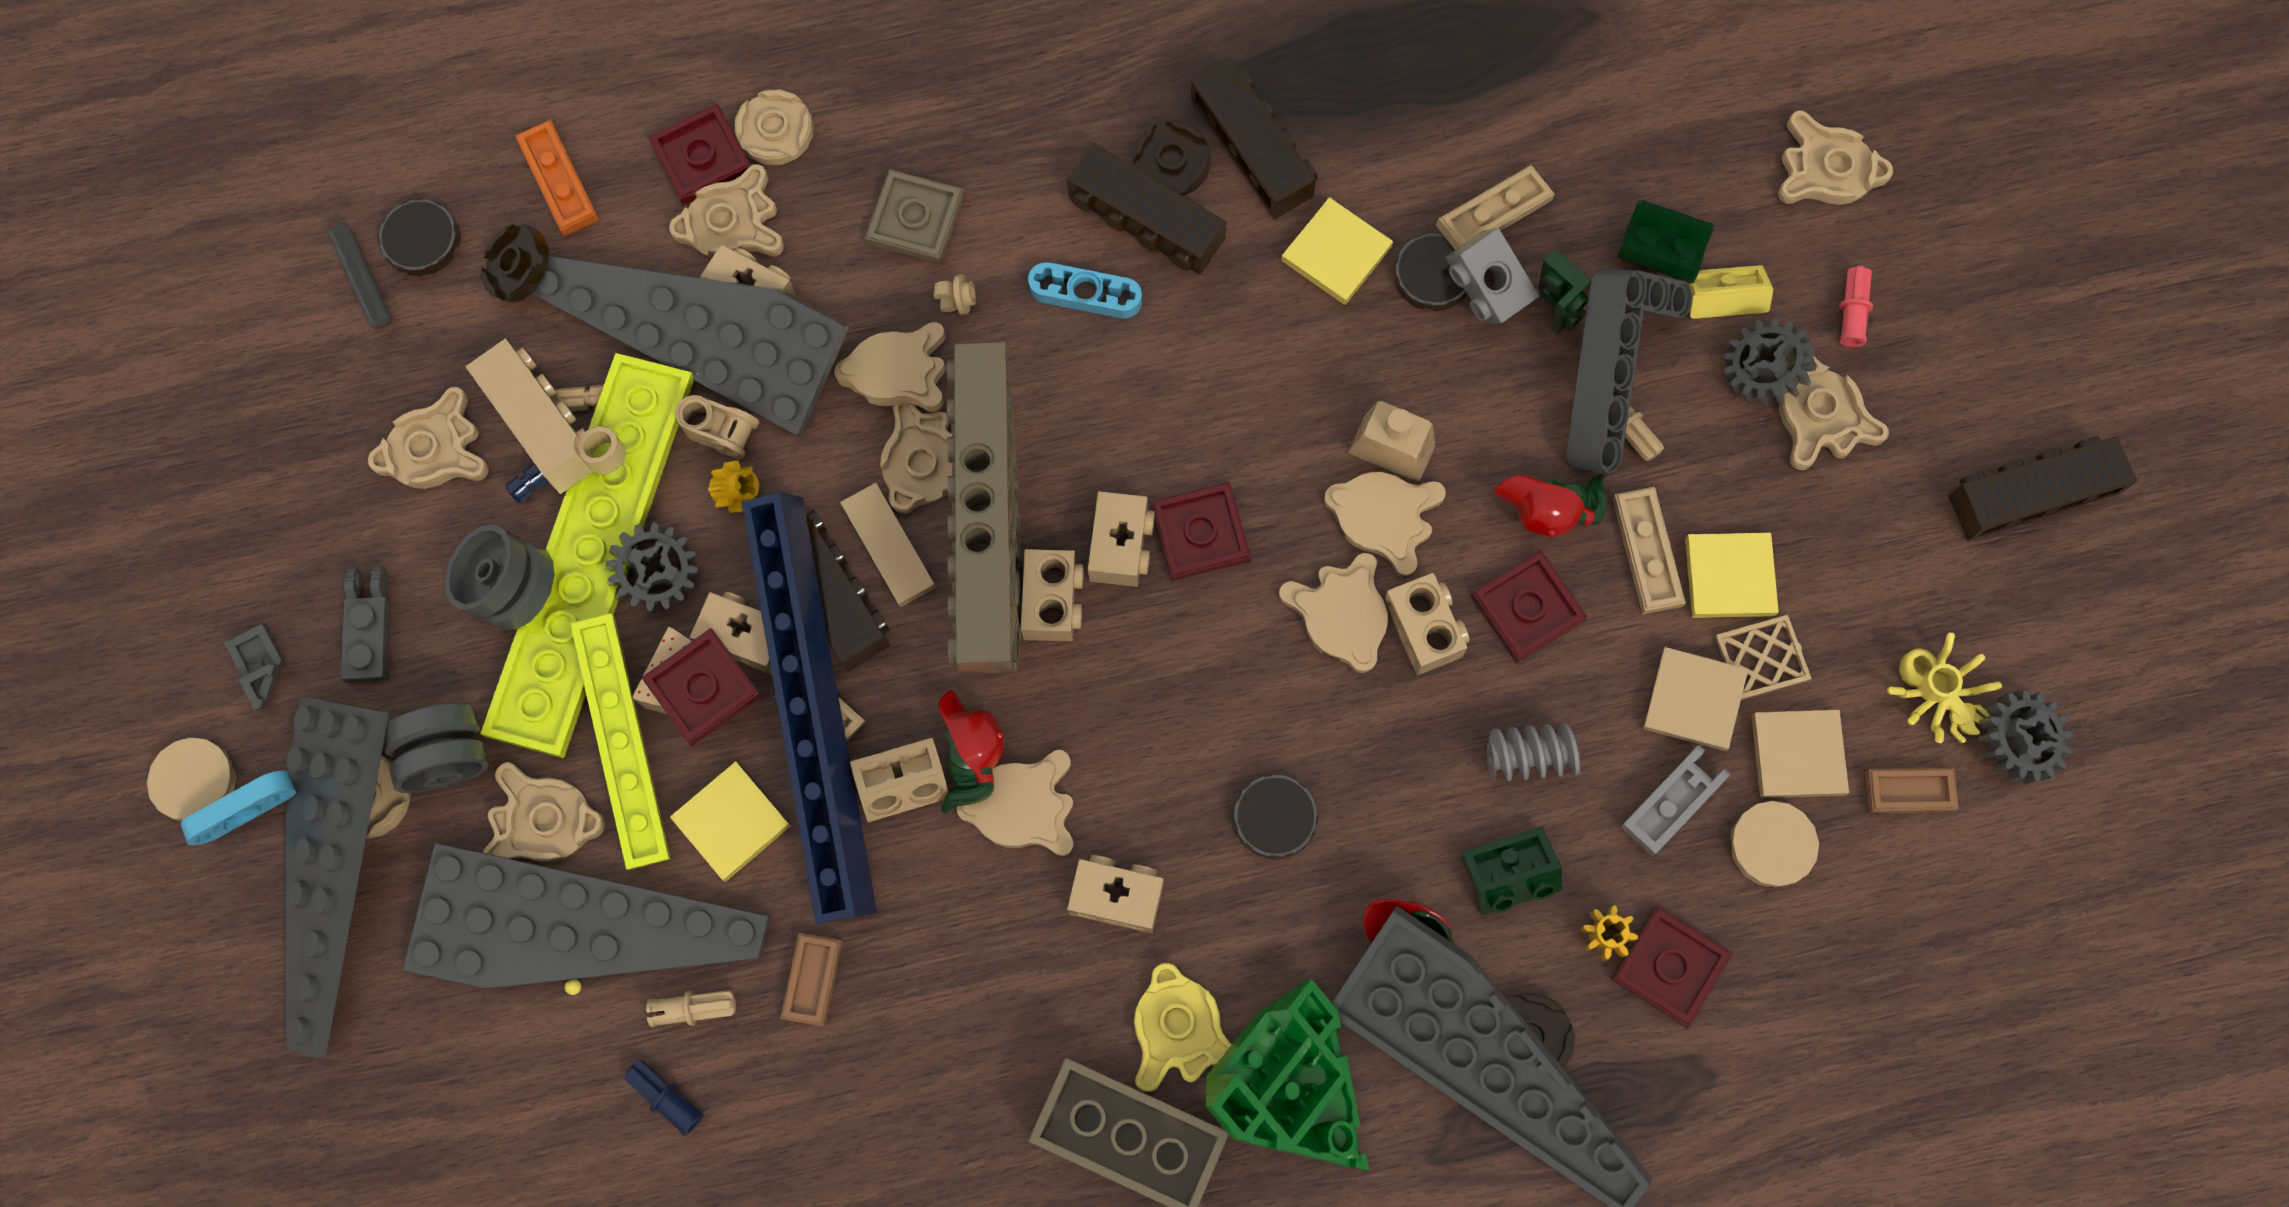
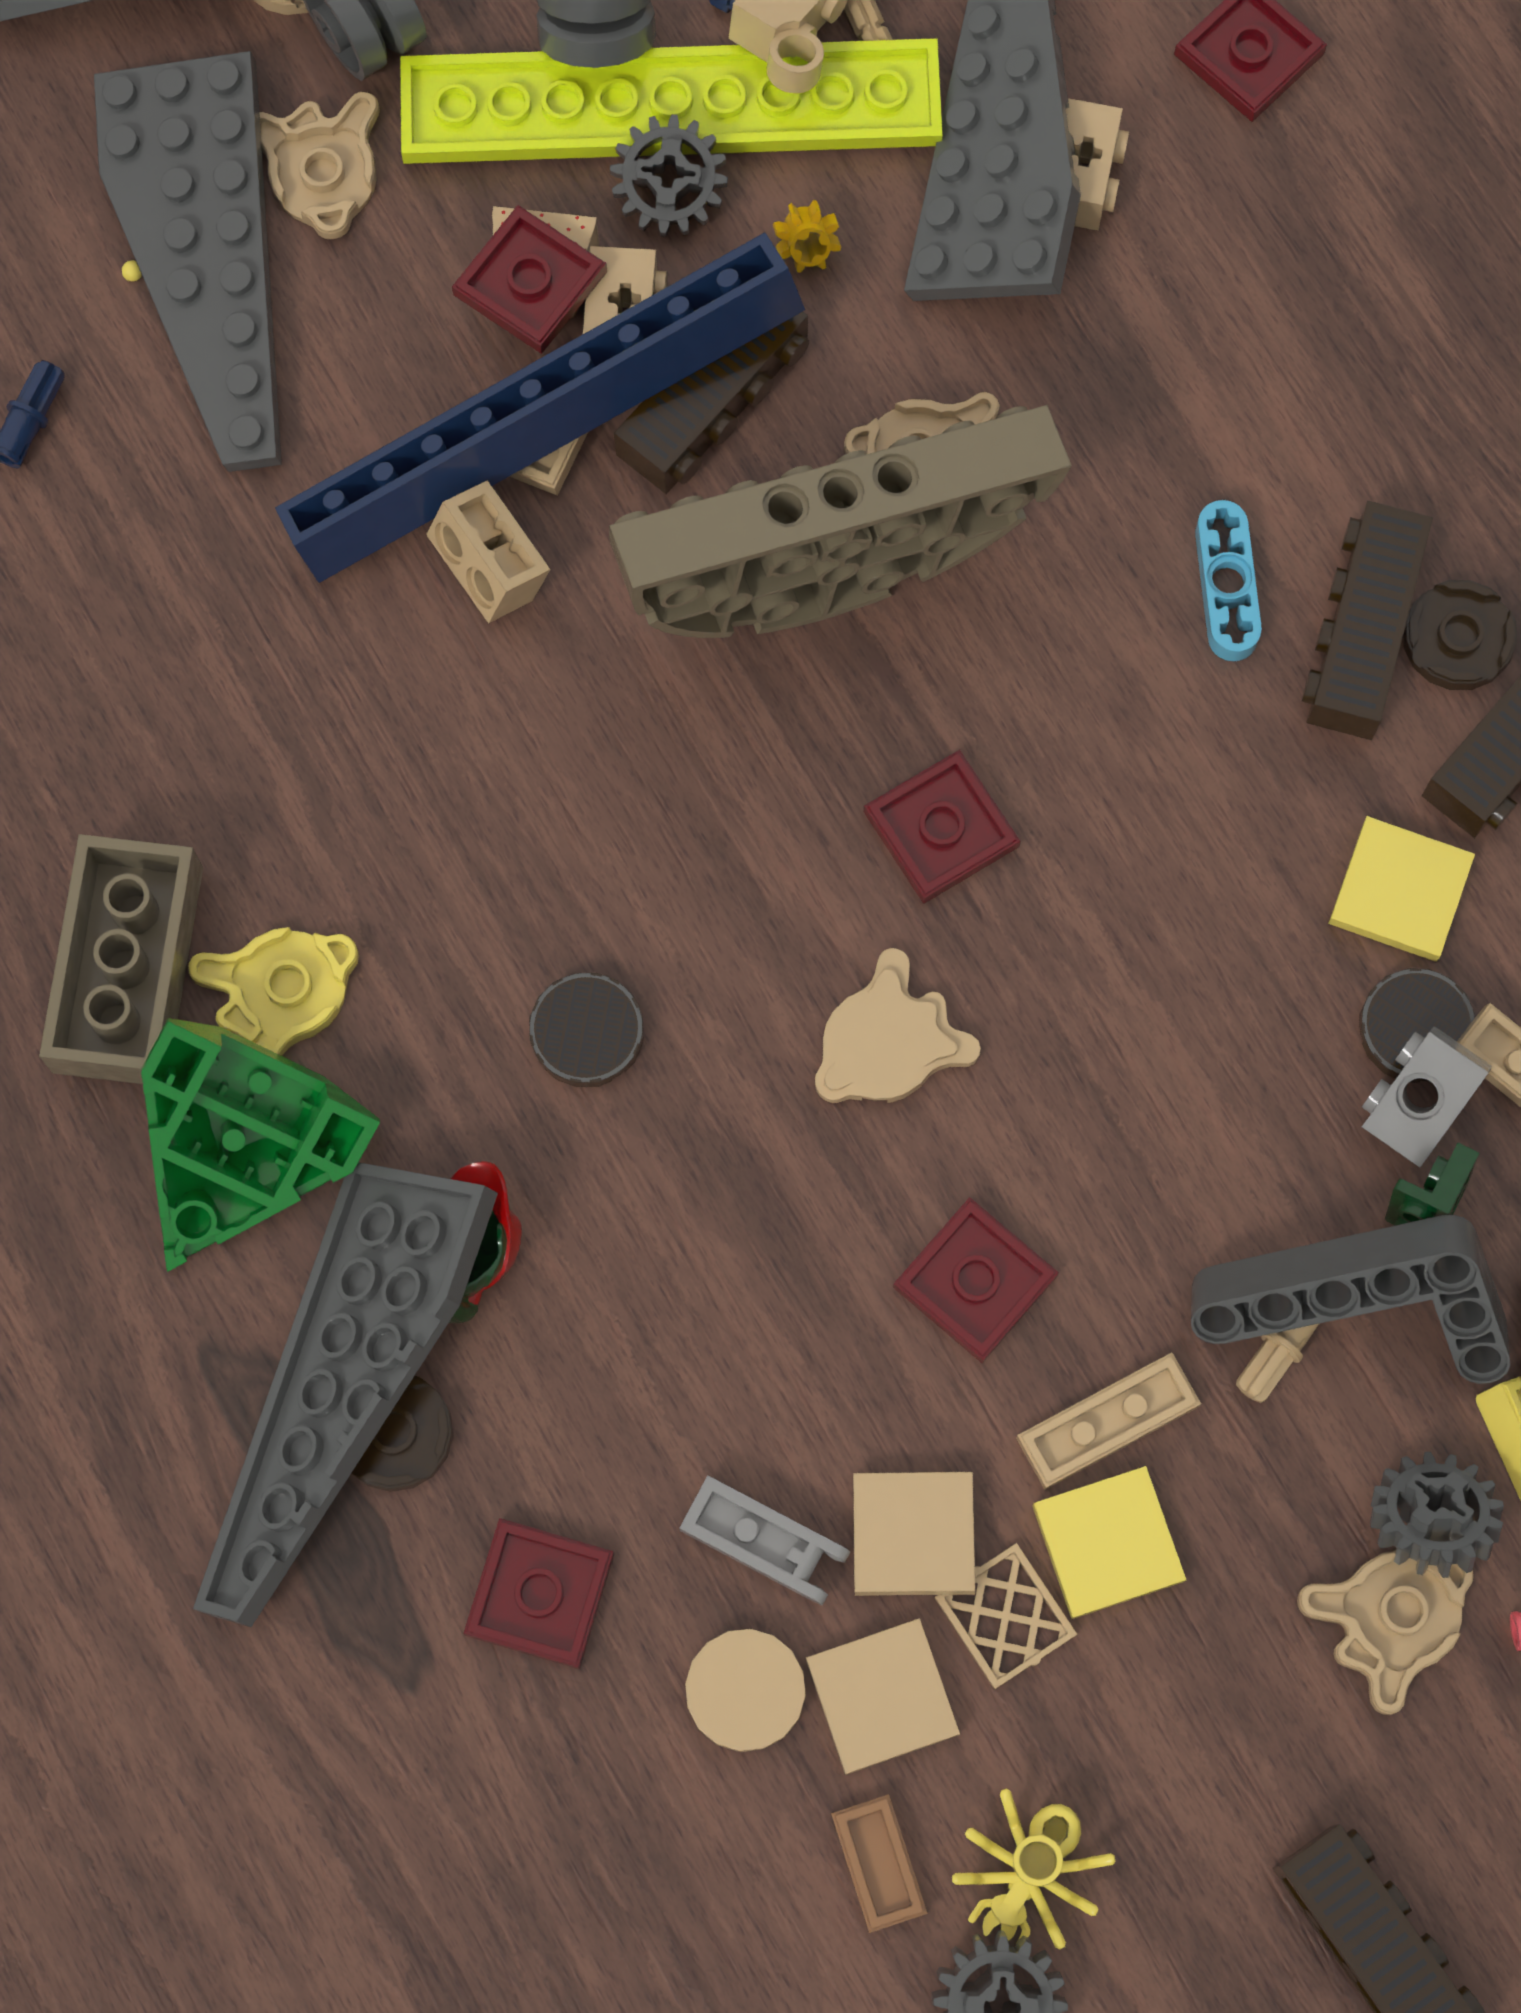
camera: 70 degrees right, 0 degrees up
(620, 741) = (438, 214): neon yellow plate -> none
(691, 1008) = (141, 407): tan axle -> none
(723, 428) = (882, 194): tan piece -> none
(730, 216) = (1175, 114): tan tile -> none
(730, 821) = (382, 377): light yellow tile -> none
(774, 127) = (1321, 125): tan tile -> none
(811, 980) = (216, 536): medium nougat tile -> none
(888, 545) = (804, 434): tan tile -> none
(896, 368) = (1036, 366): tan tile -> none
(914, 216) = (1258, 337): dark tan tile -> none
(955, 295) = (1163, 422): tan plate -> none
(974, 751) = (556, 624): red hair -> none
(1026, 806) = (506, 713): tan tile -> none
(1041, 595) = (782, 646): tan brick -> none
(1117, 515) = (917, 707): tan brick -> none
(1132, 912) = (410, 829): tan brick -> none
(1383, 515) = (1041, 1054): tan tile -> none
(1395, 440) = (1143, 1034): tan torso -> none
(1415, 626) = (892, 1136): tan brick -> none
(1513, 871) = (602, 1348): dark green bracket -> none
(1532, 751) = (767, 1331): light grey piece -> none
(1554, 507) = (1117, 1273): red hair -> none
(1619, 939) = (555, 1477): yellow gear -> none

